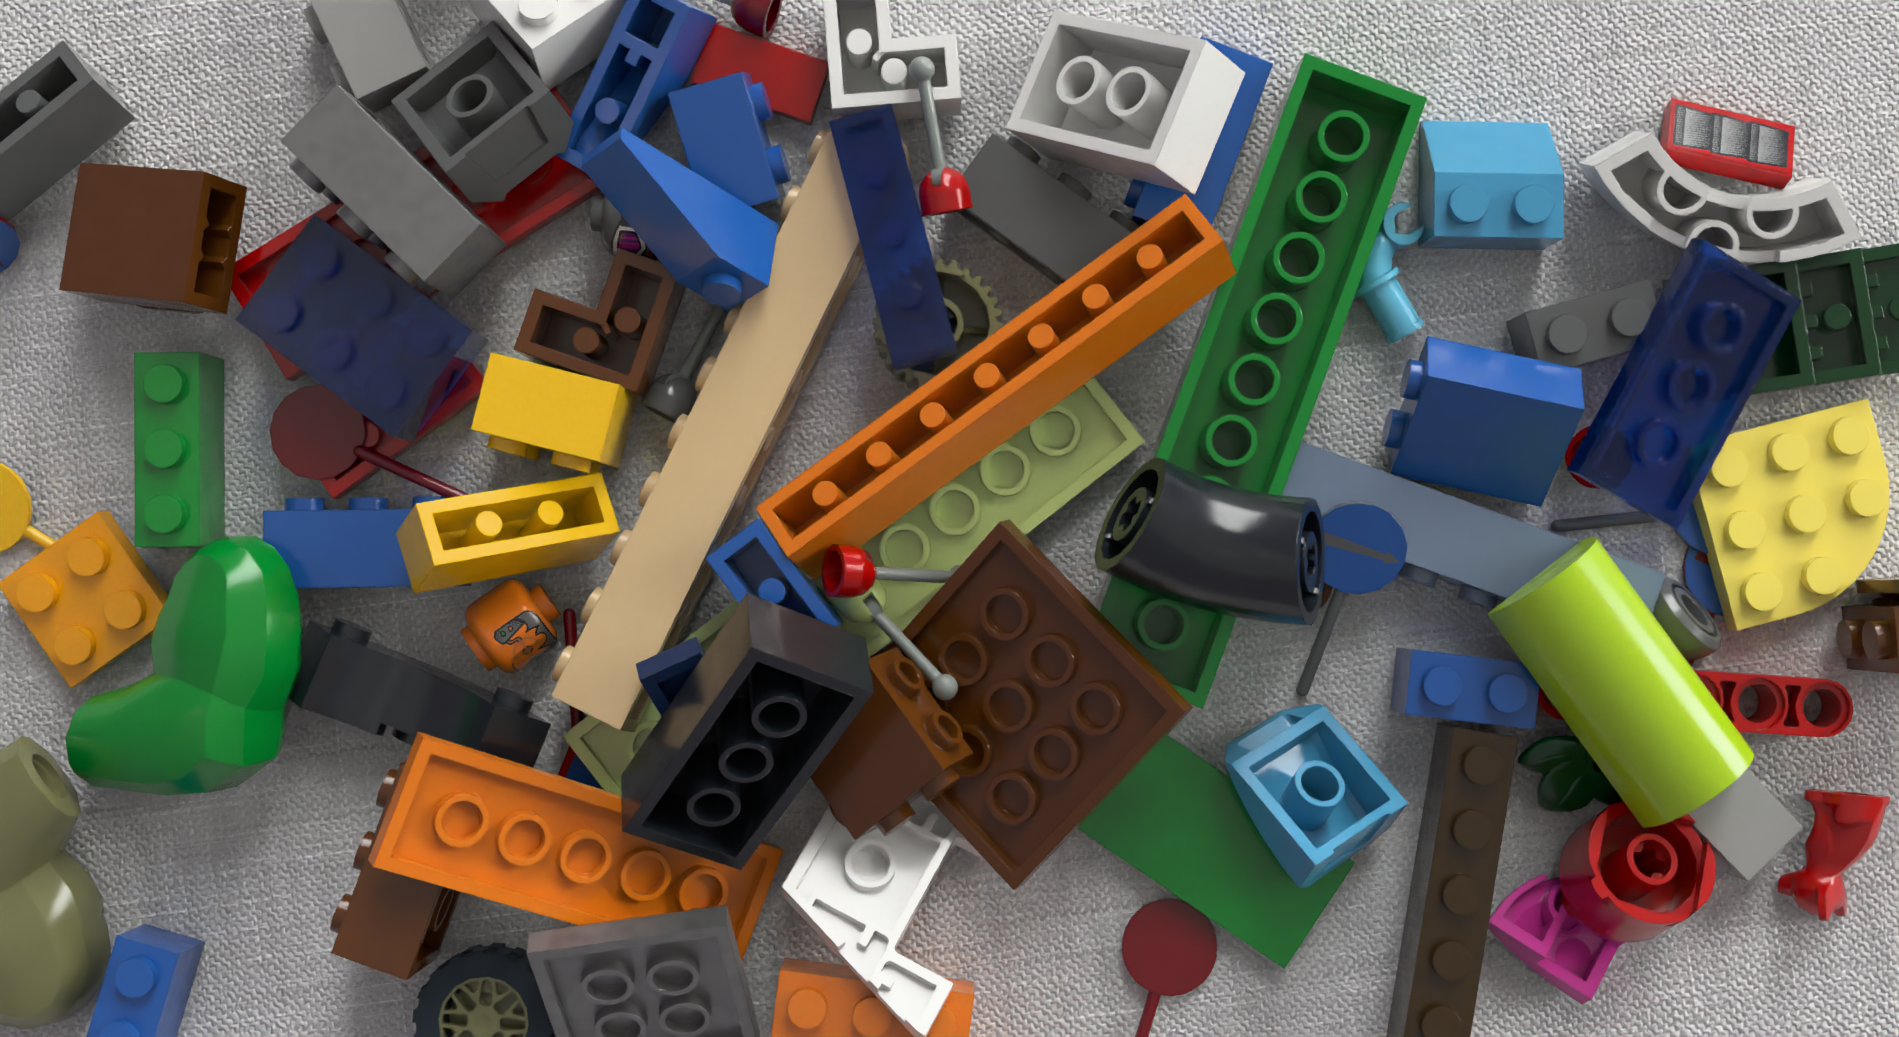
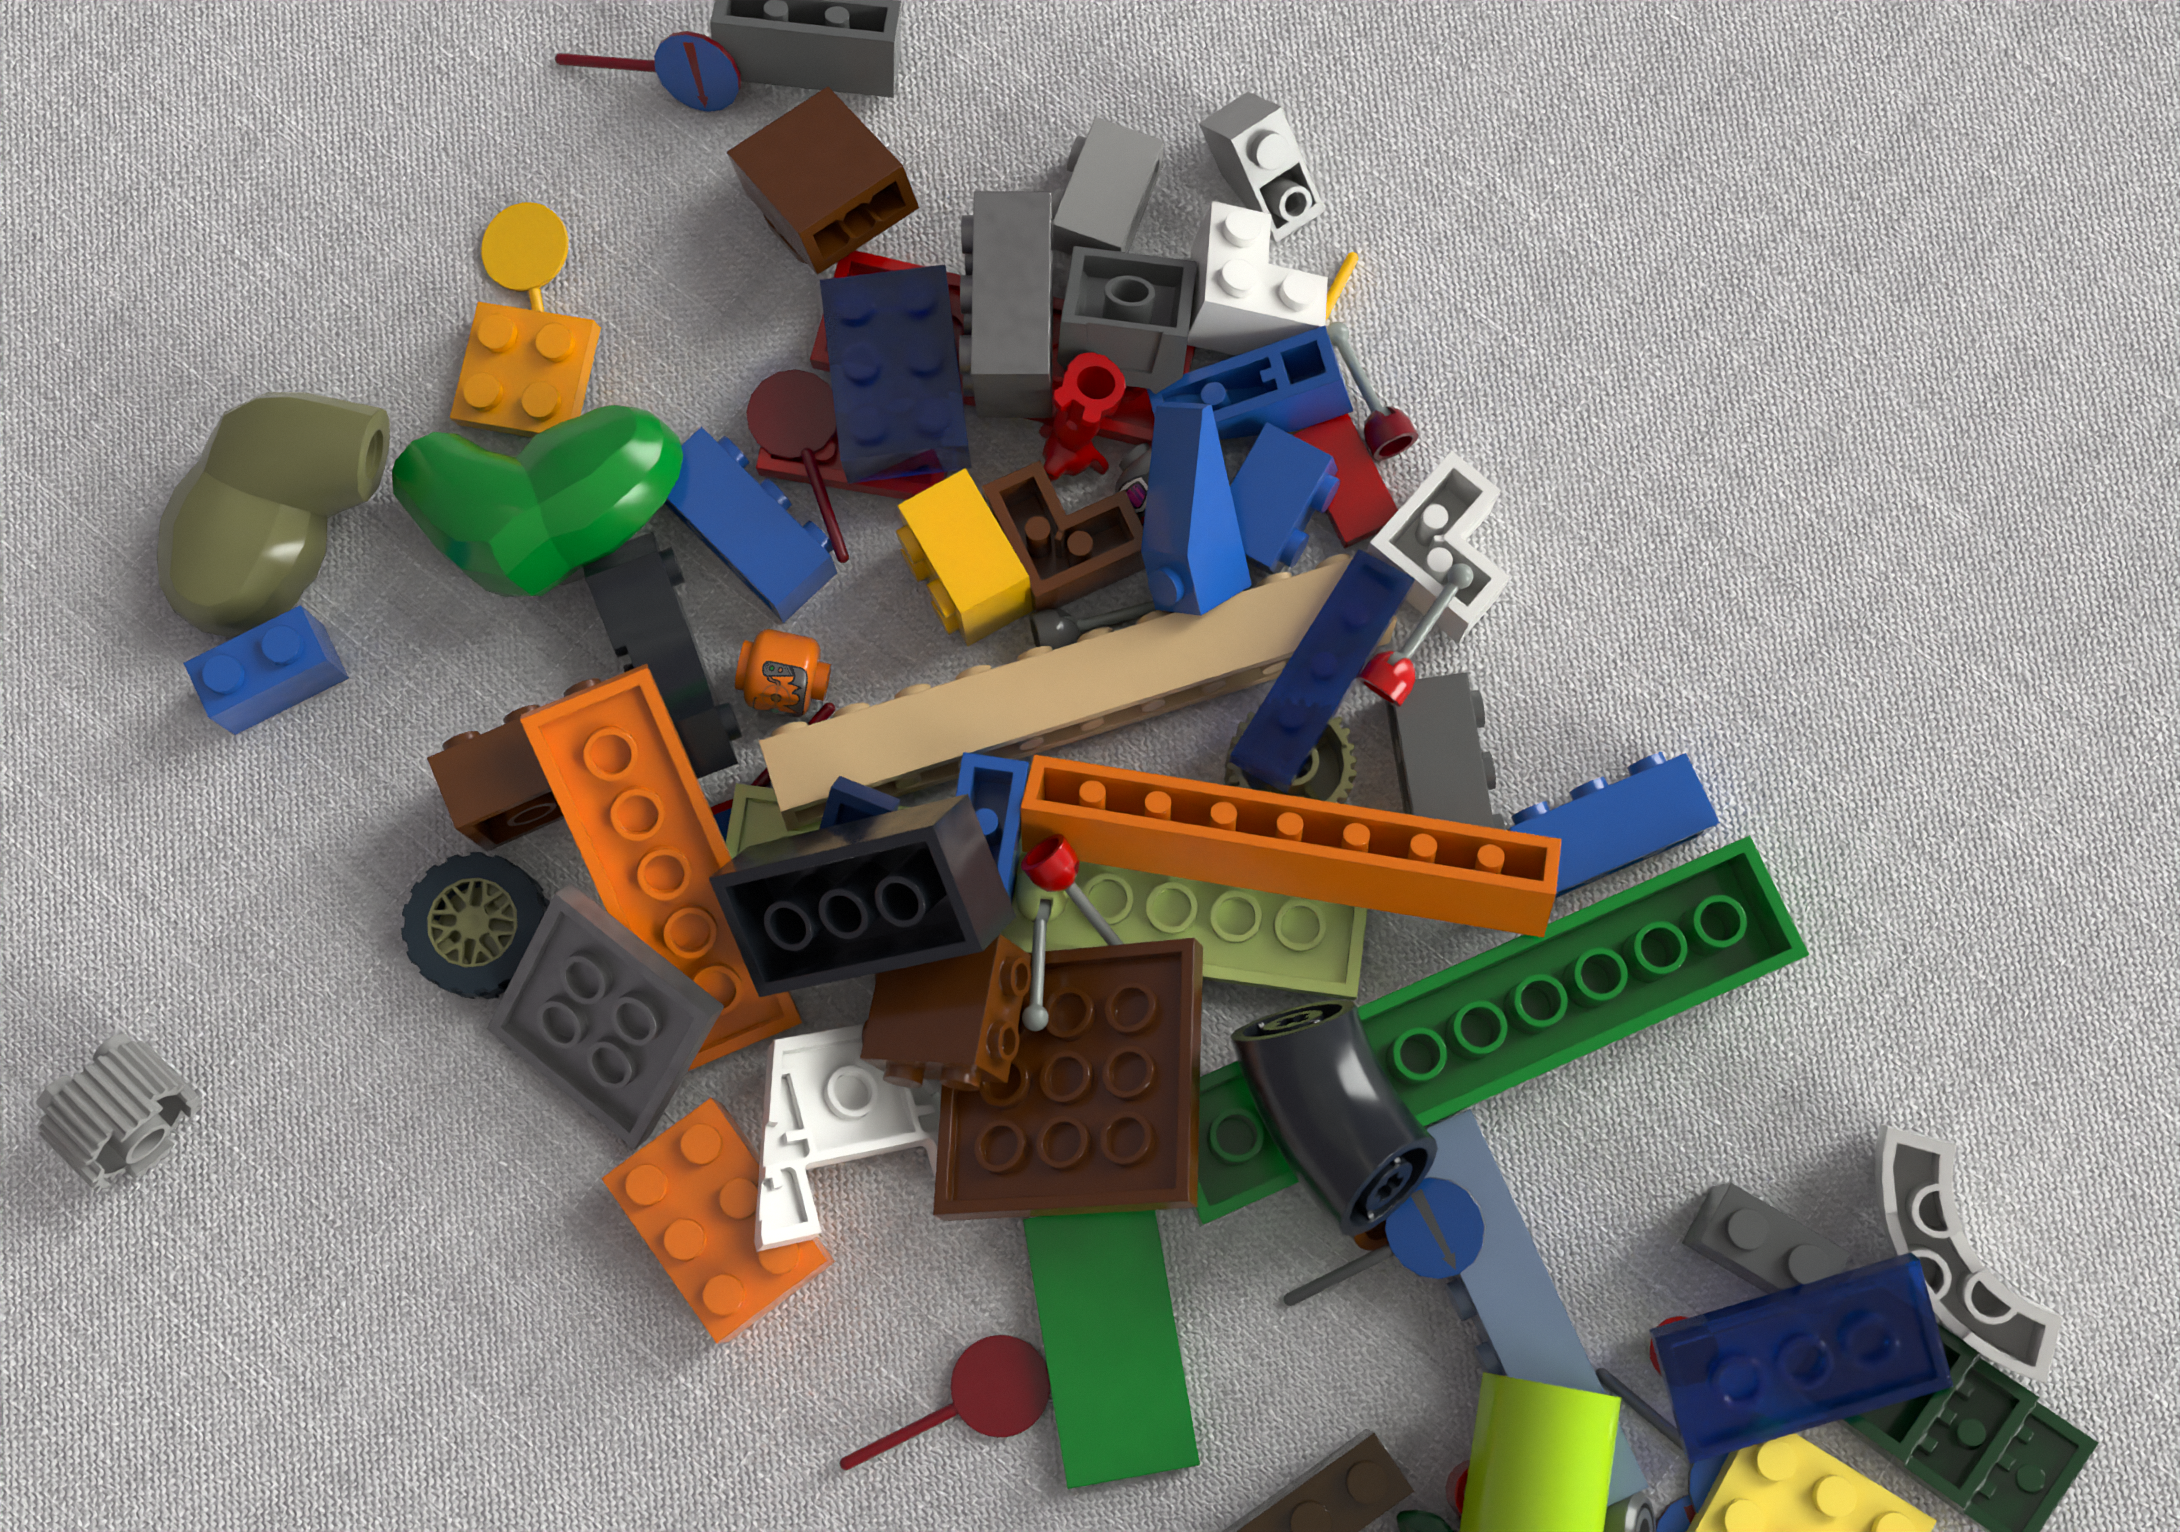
camera: 45 degrees right, 10 degrees down
(178, 449) = (690, 333): green brick -> none
(506, 532) = (848, 602): yellow brick -> none
(520, 205) = (1087, 394): none -> red animal
(1126, 100) = (1585, 740): white brick -> none
(1311, 791) = (1220, 1376): dark azure slope -> none
(1379, 284) = (1646, 1055): medium azure piece -> none
(1464, 688) = (1411, 1417): blue brick -> none
(1483, 420) = (1621, 1231): blue brick -> none
(1489, 186) = (1794, 1072): dark azure slope -> none
(1728, 143) = (2010, 1222): tile -> none

